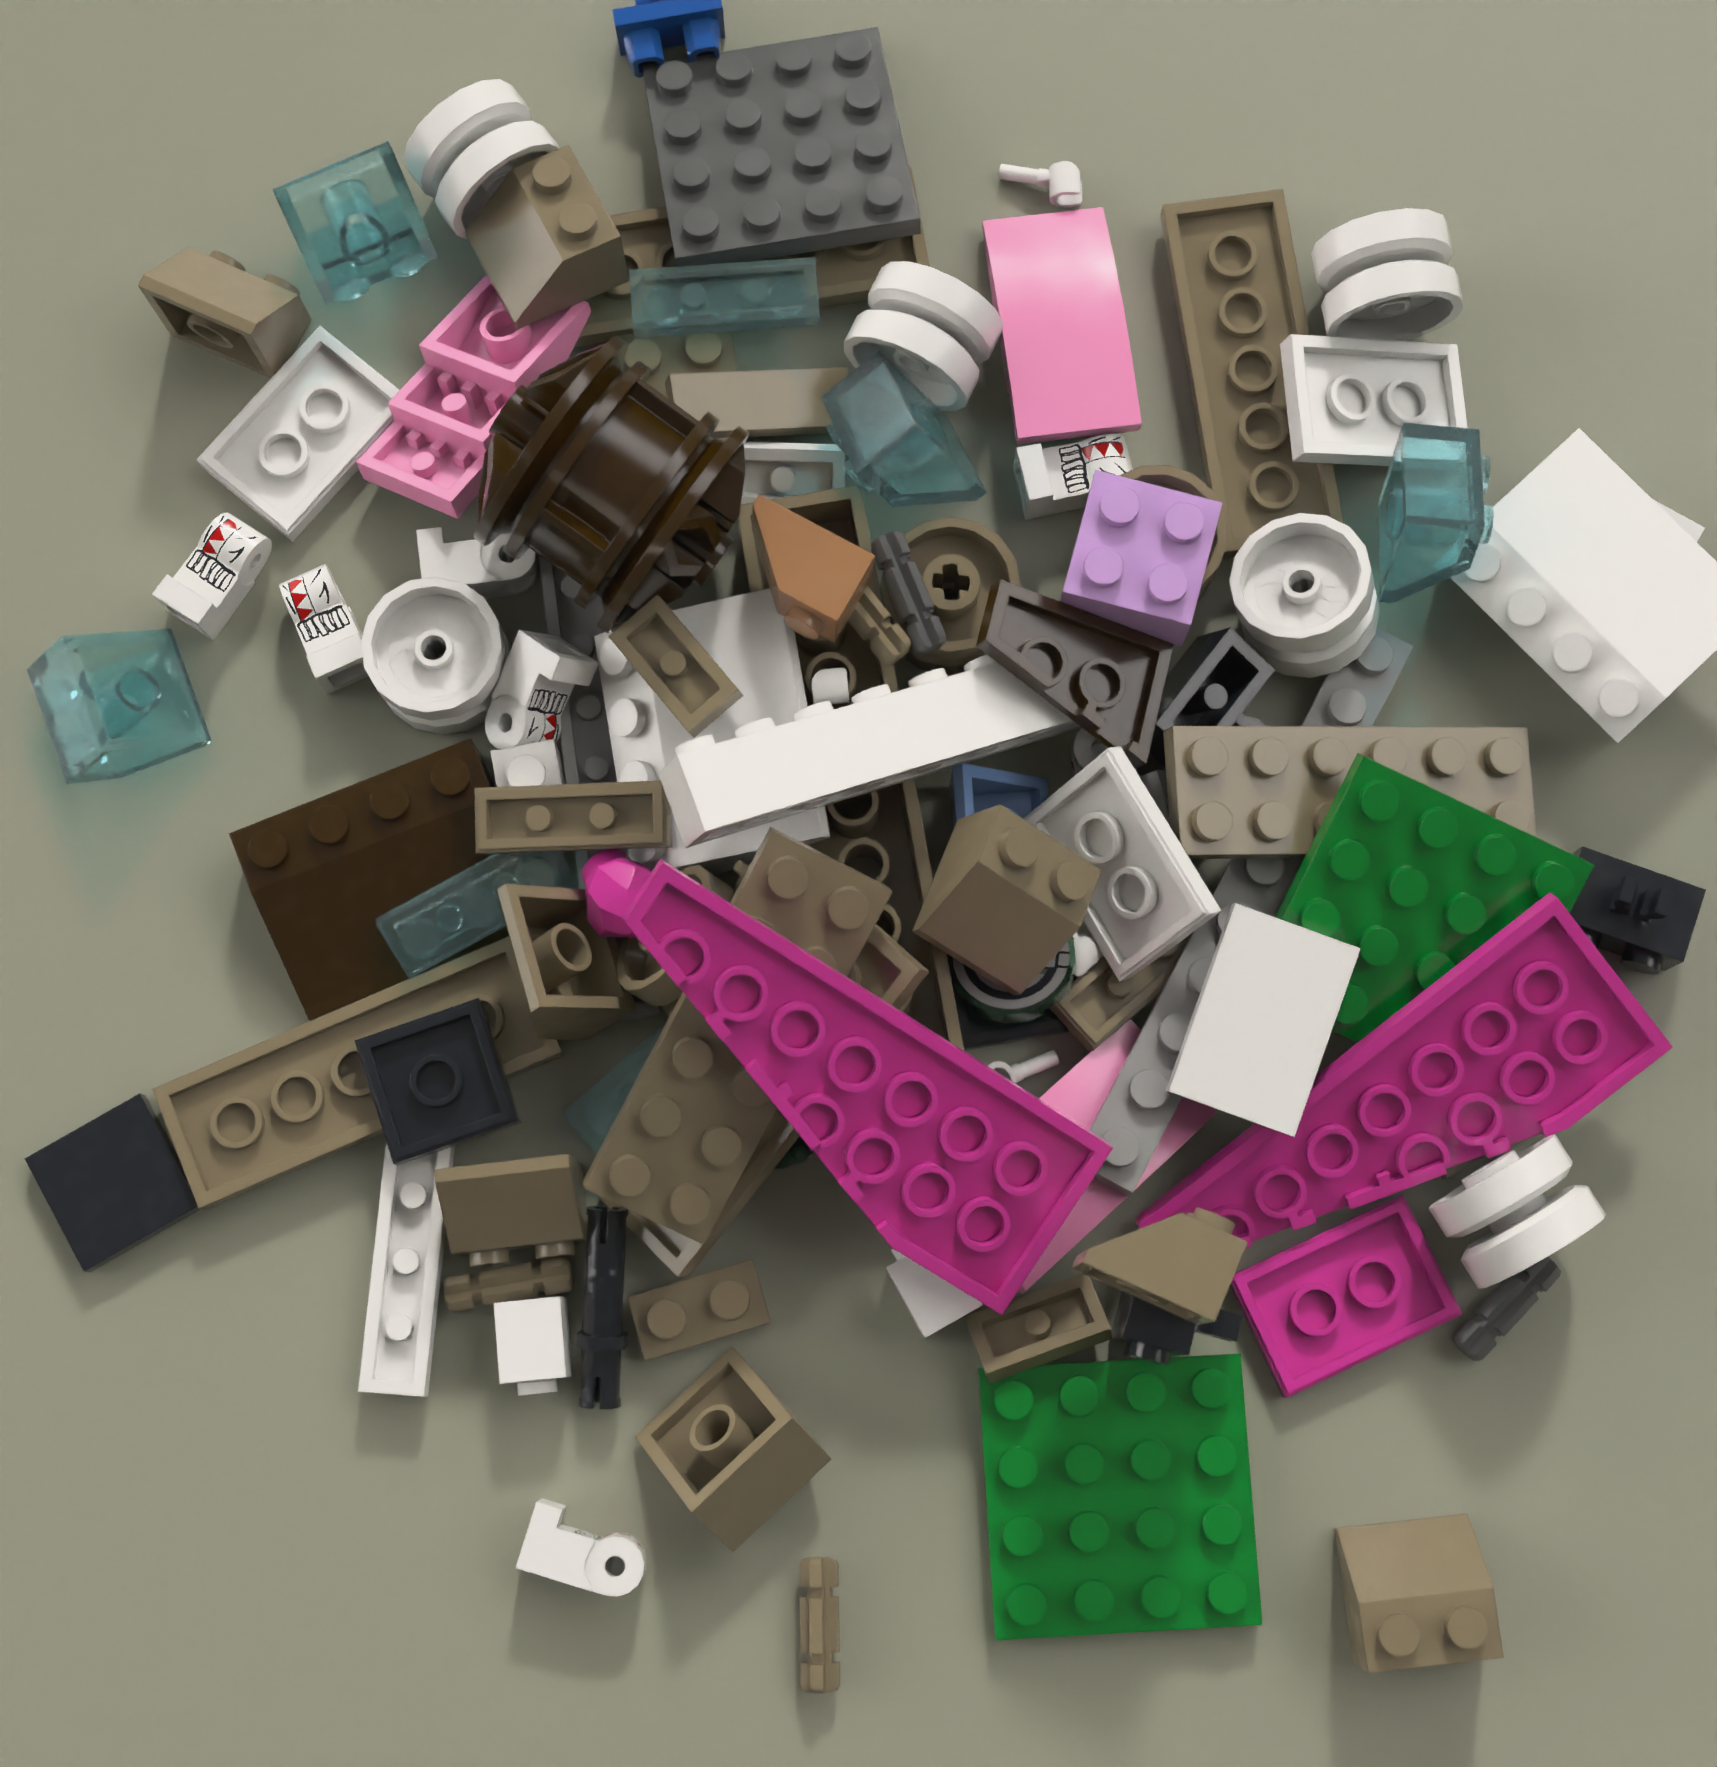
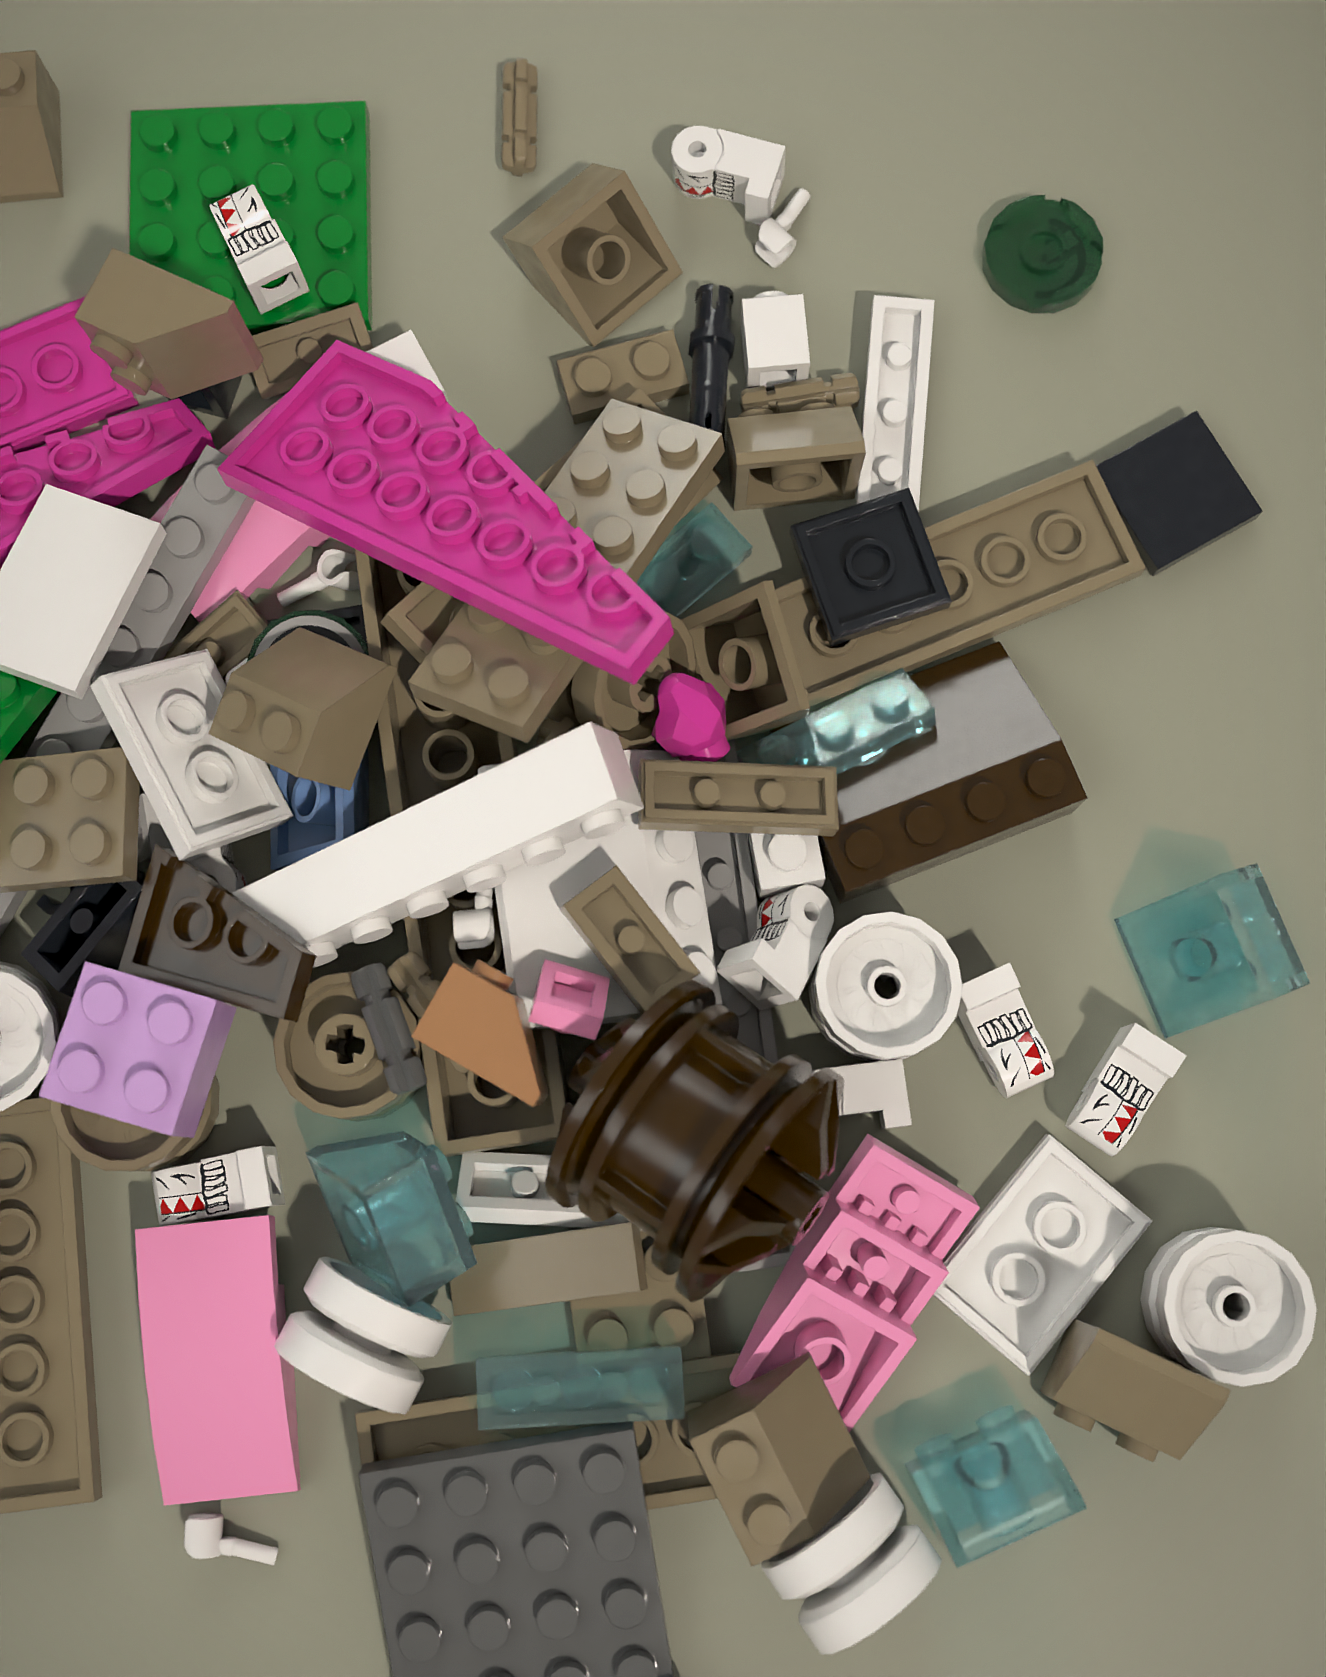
camera: 175 degrees left, 0 degrees up
(133, 379) = (1260, 1285): none -> white wheel
(237, 1462) = (1042, 254): none -> clear green tile
(533, 1471) = (774, 241): none -> white hand
(730, 604) = (569, 1000): none -> bright pink plate
(1099, 1434) = (258, 248): none -> white leg

